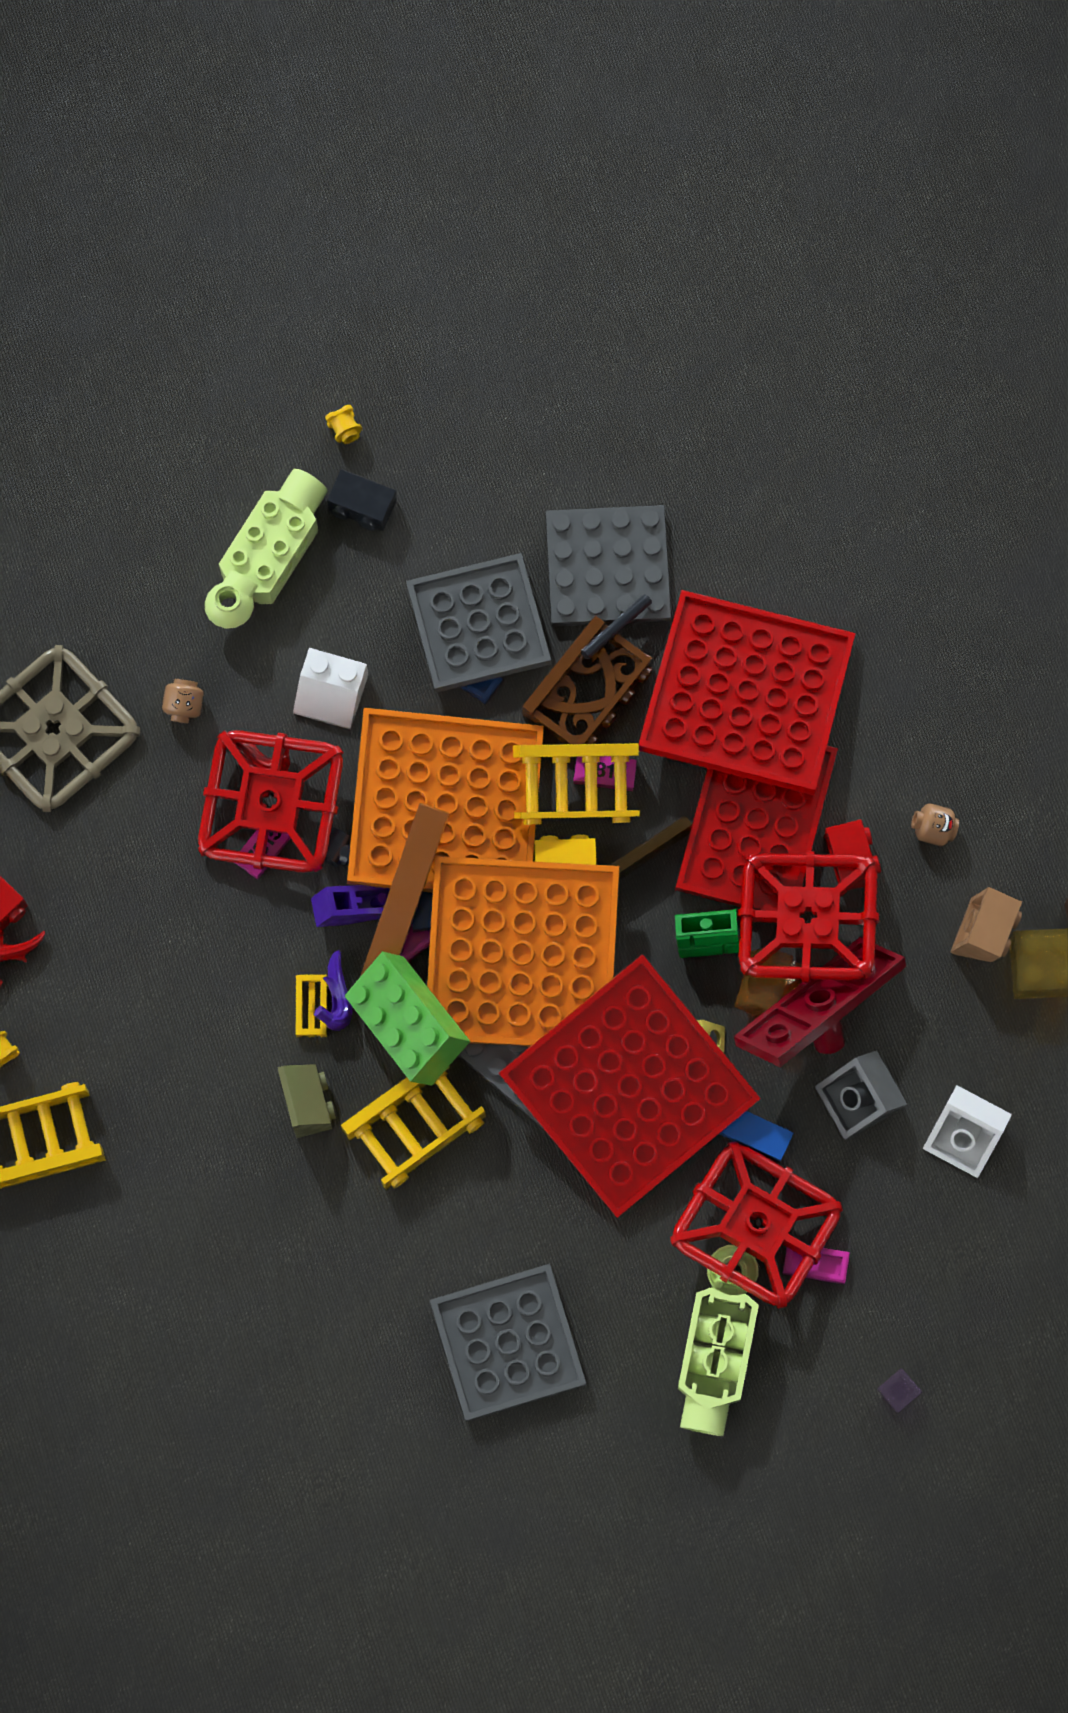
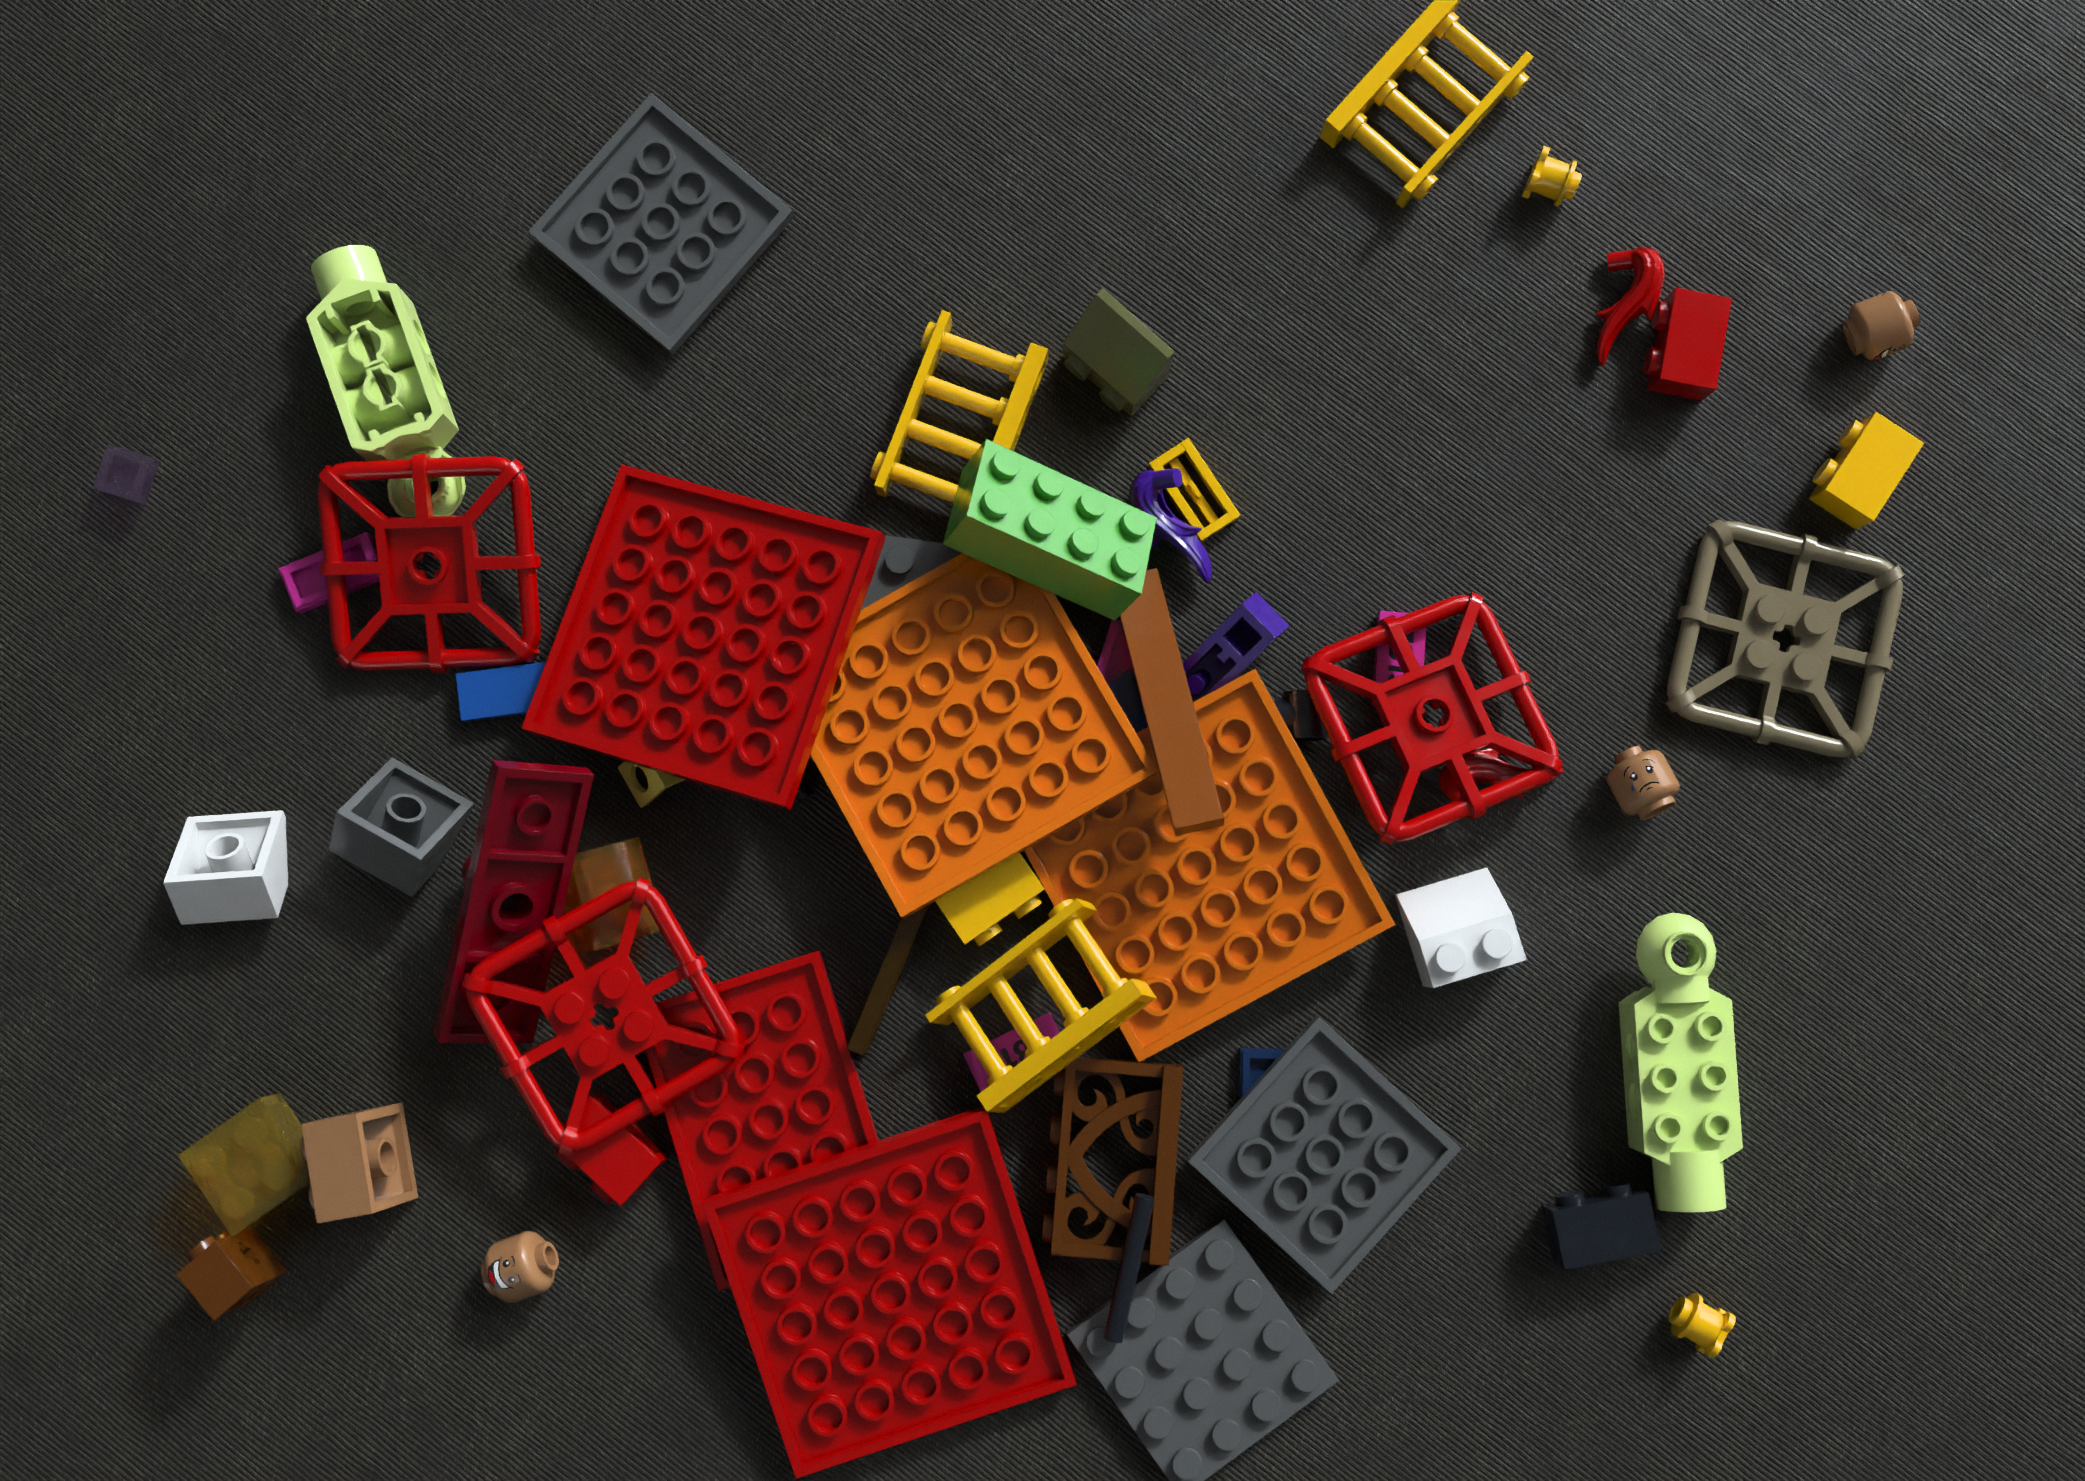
camera: 145 degrees right, 10 degrees up
(707, 933) = (732, 910): green brick -> none

